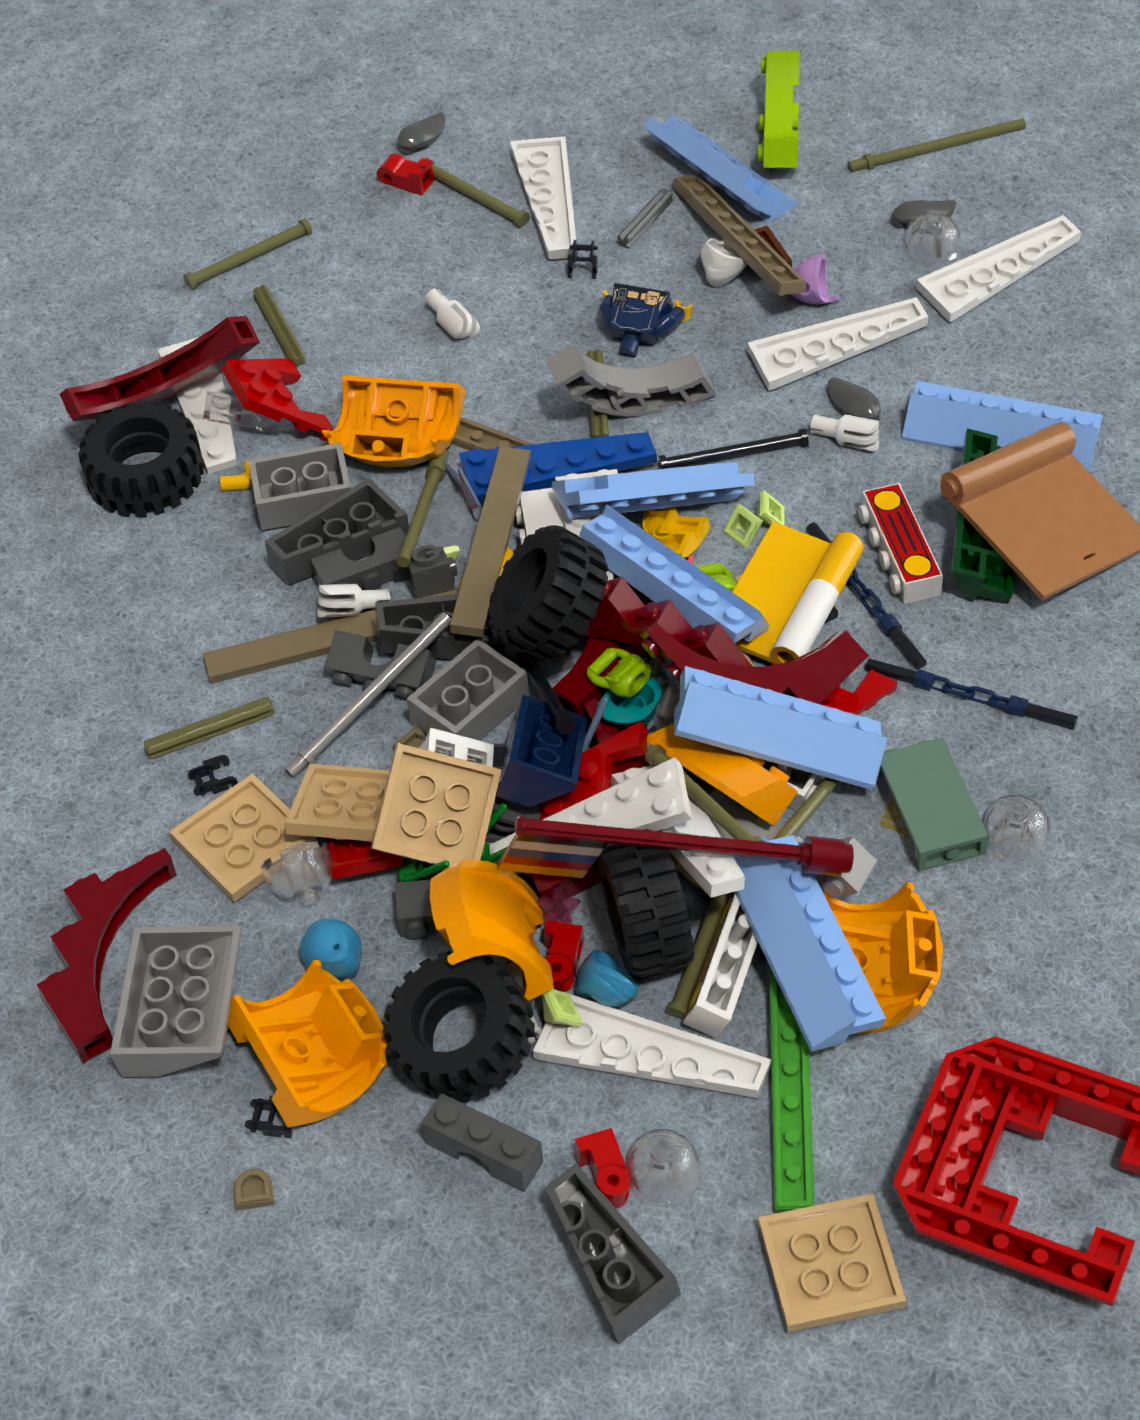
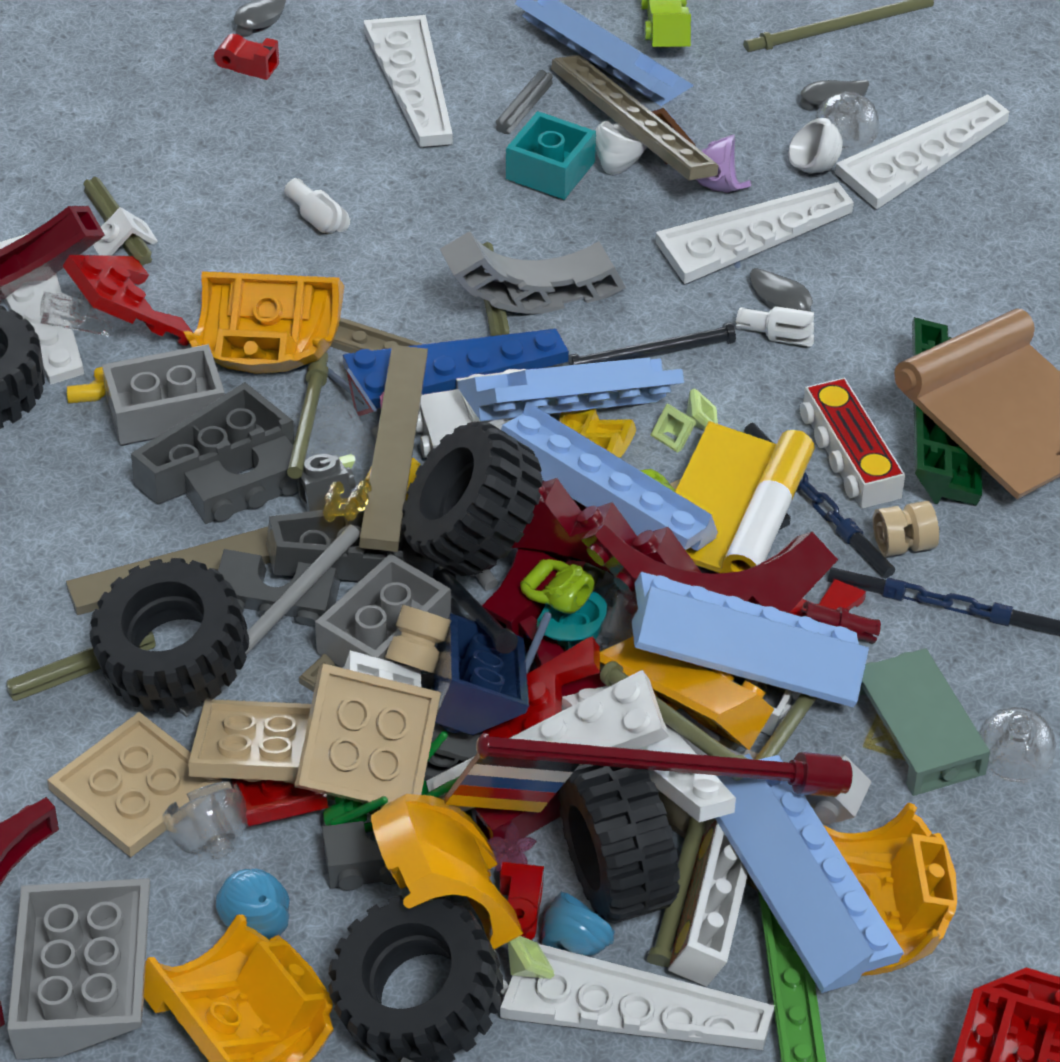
camera: 10 degrees left, 5 degrees down
(208, 769) = (92, 727): black piece -> none
(241, 257) = (12, 172): olive bar -> none
(263, 676) = (179, 674): none -> black tyre
(278, 333) = (119, 229): none -> white bracket
(347, 600) = (232, 518): white arm -> none
(447, 593) = (356, 502): none -> clear yellow piece
(492, 716) = (418, 638): none -> tan wheel
(519, 217) = (381, 102): olive bar -> none
(592, 259) = (448, 145): black piece -> none
(640, 315) = (532, 204): dark blue torso -> none
(662, 265) = (550, 155): none -> teal brick
(871, 708) = (863, 626): none -> dark red pin
(899, 264) = (816, 146): none -> white hair
(943, 414) = (886, 305): light blue slope -> none
(950, 621) = (894, 526): none -> tan wheel

